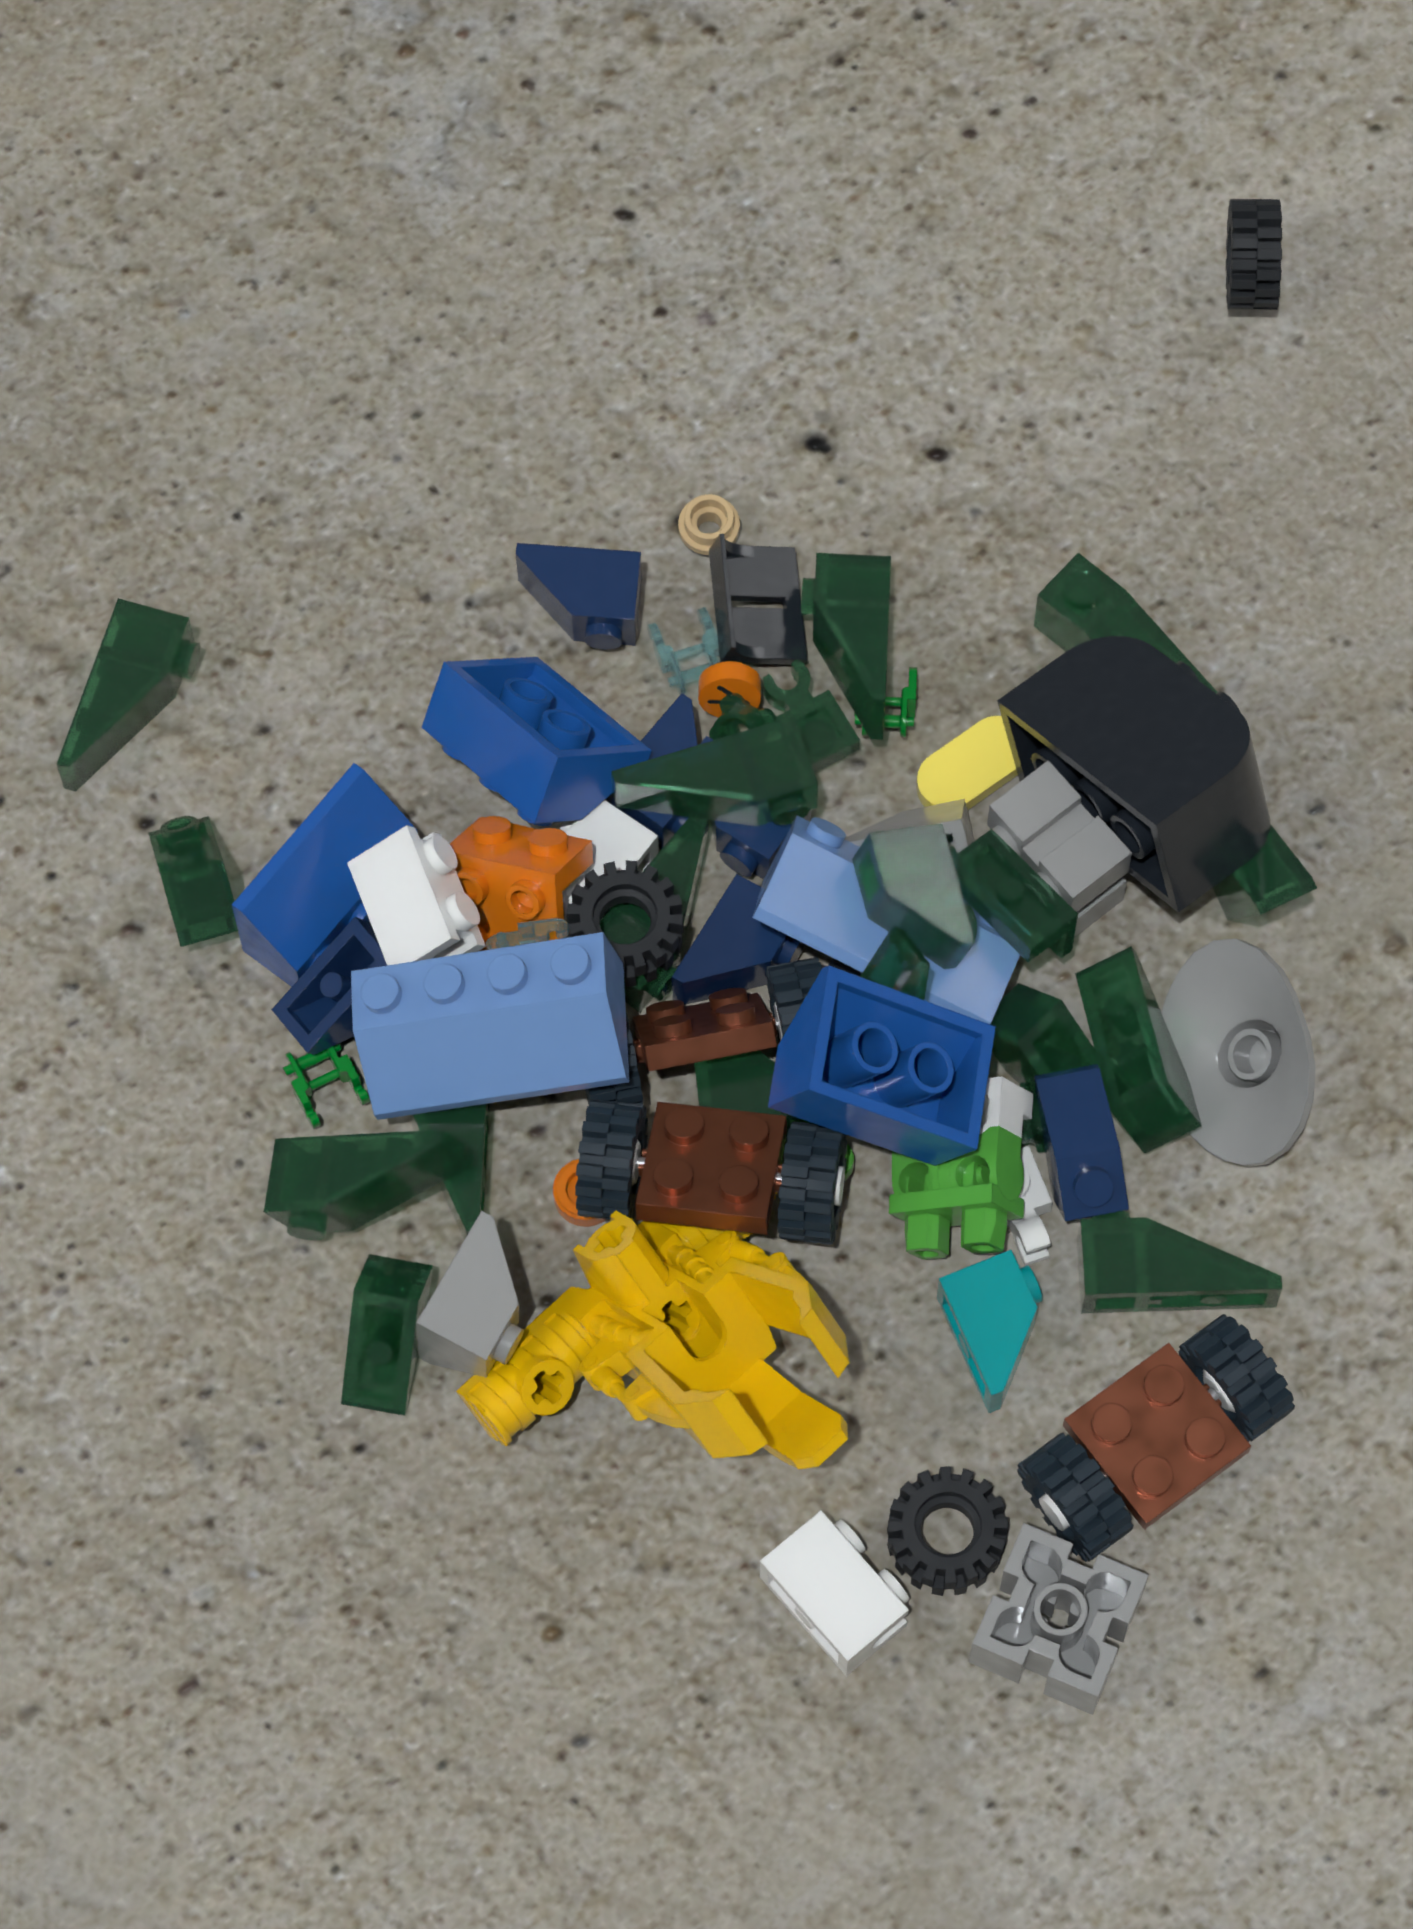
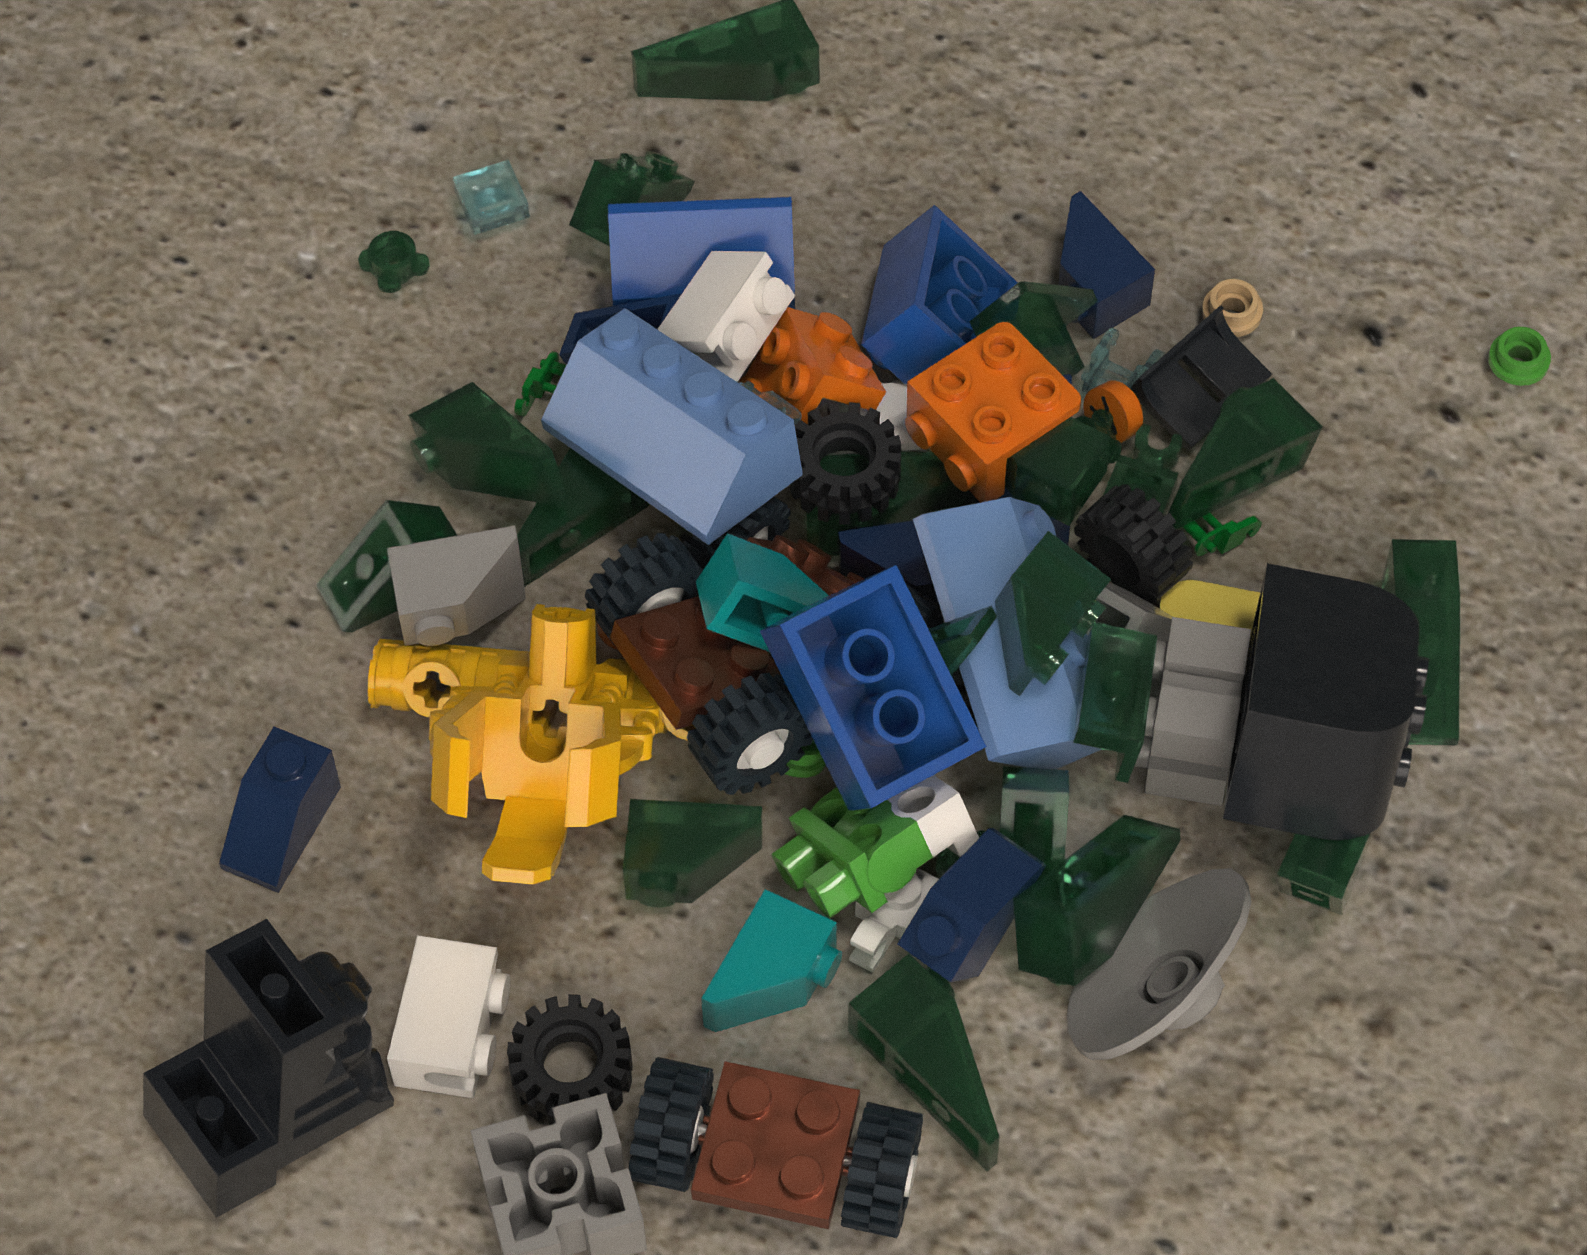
camera: 50 degrees right, 10 degrees down
(66, 1093) = (389, 248): none -> clear green plate
(85, 984) = (491, 197): none -> clear light blue plate
(540, 1585) = (279, 808): none -> dark blue slope
(623, 694) = (1041, 317): none -> clear green panel
(683, 779) = (986, 407): none -> orange bracket
(712, 1081) = (751, 589): none -> teal slope
(794, 1760) = (276, 1071): none -> black brick
(851, 1295) = (685, 848): none -> clear green slope
(871, 775) = (1134, 543): none -> black tyre
(938, 348) = (1523, 344): none -> bright green plate

